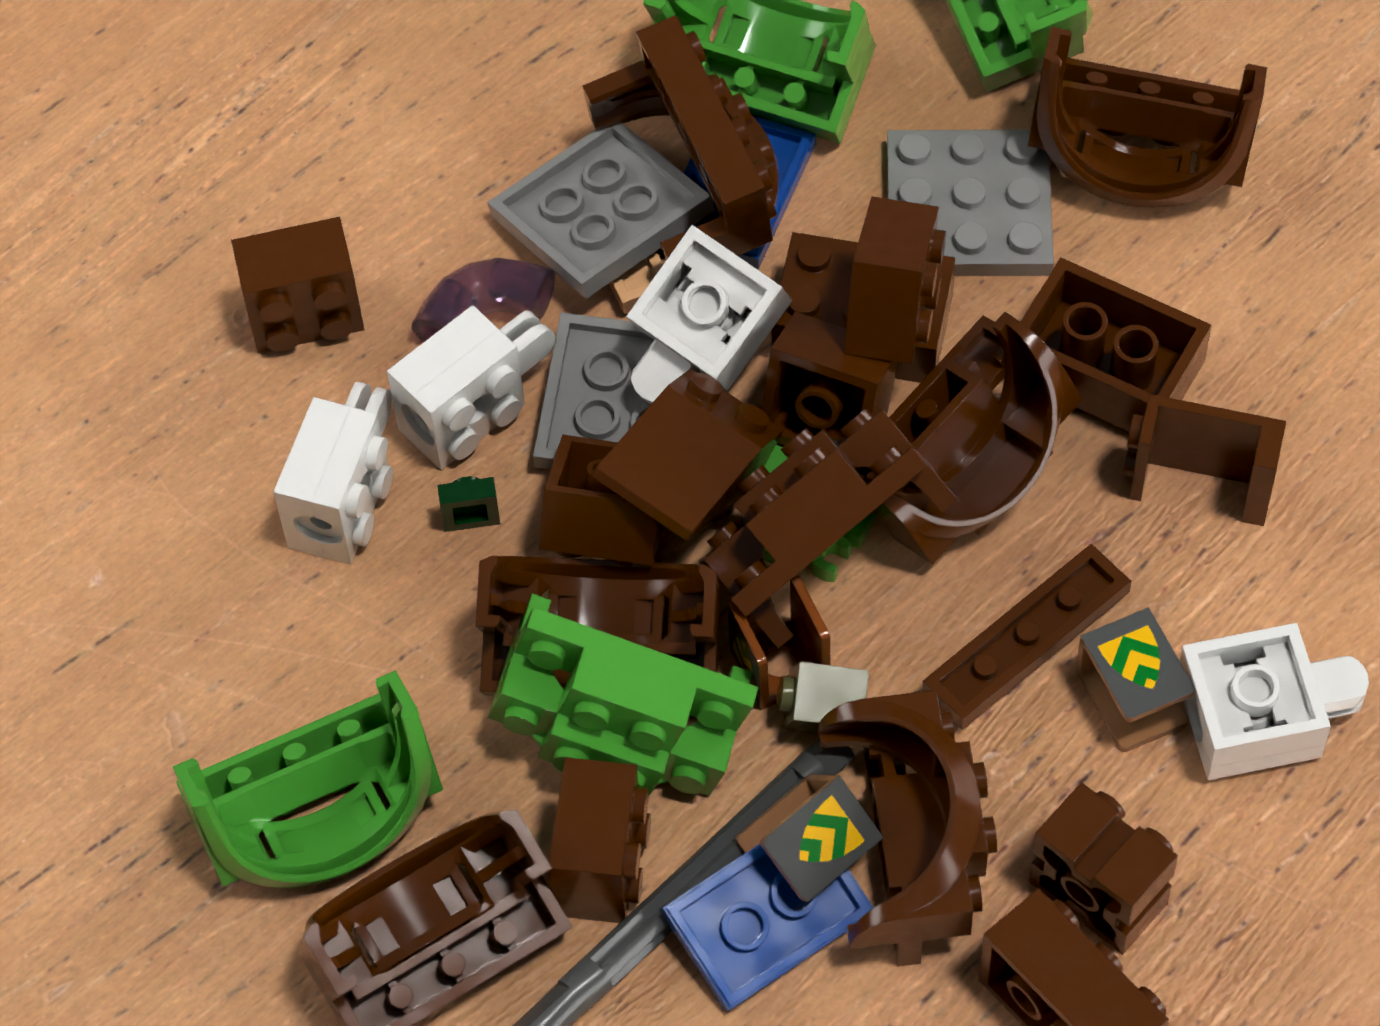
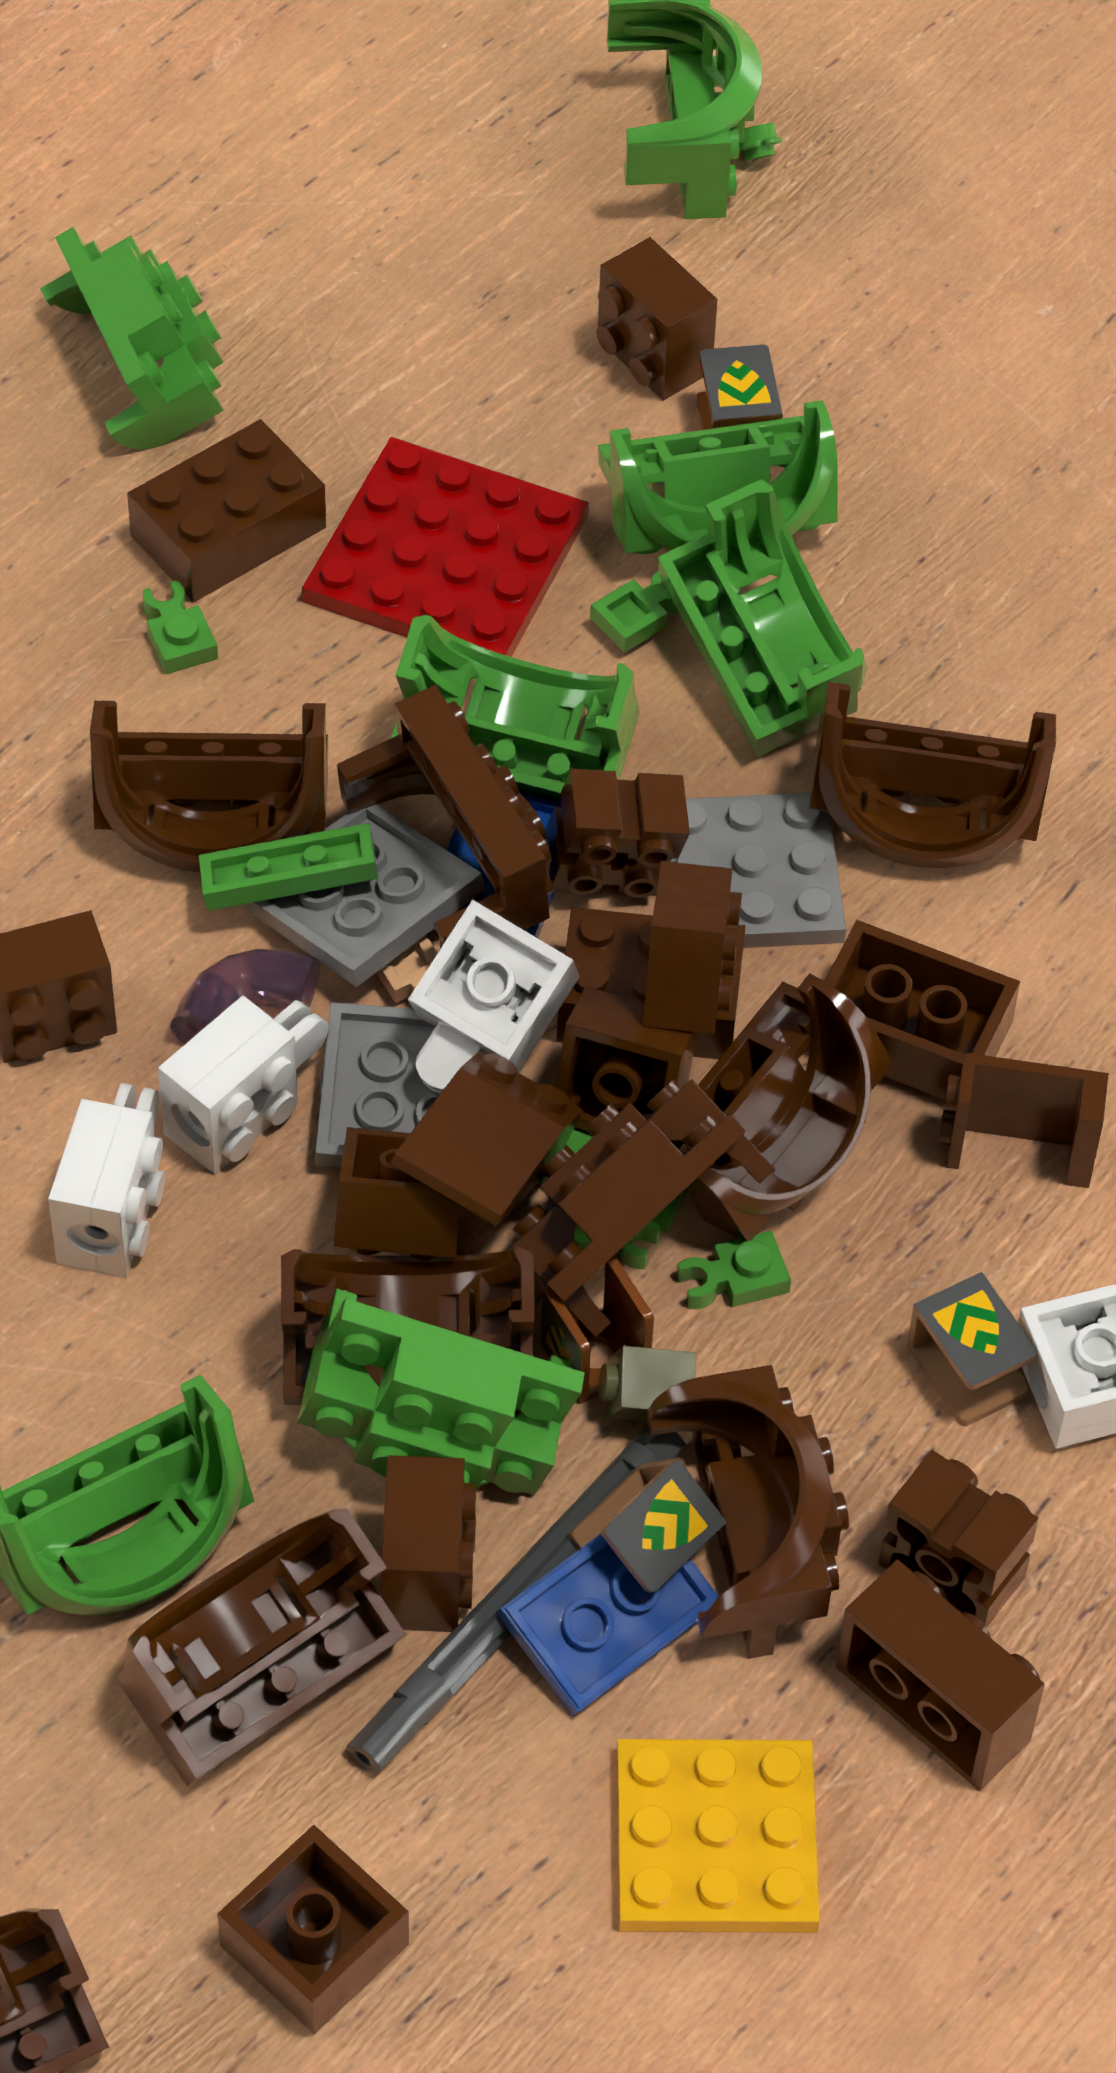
camera: 10 degrees left, 5 degrees down
(411, 80) = (242, 768): none -> reddish brown piece
(468, 503) = (250, 1206): dark green plate -> none
(532, 180) = (288, 866): none -> bright green plate
(840, 160) = (616, 831): none -> reddish brown brick
(925, 589) = (741, 1269): none -> bright green plate
(1027, 635) = (857, 1308): reddish brown plate -> none

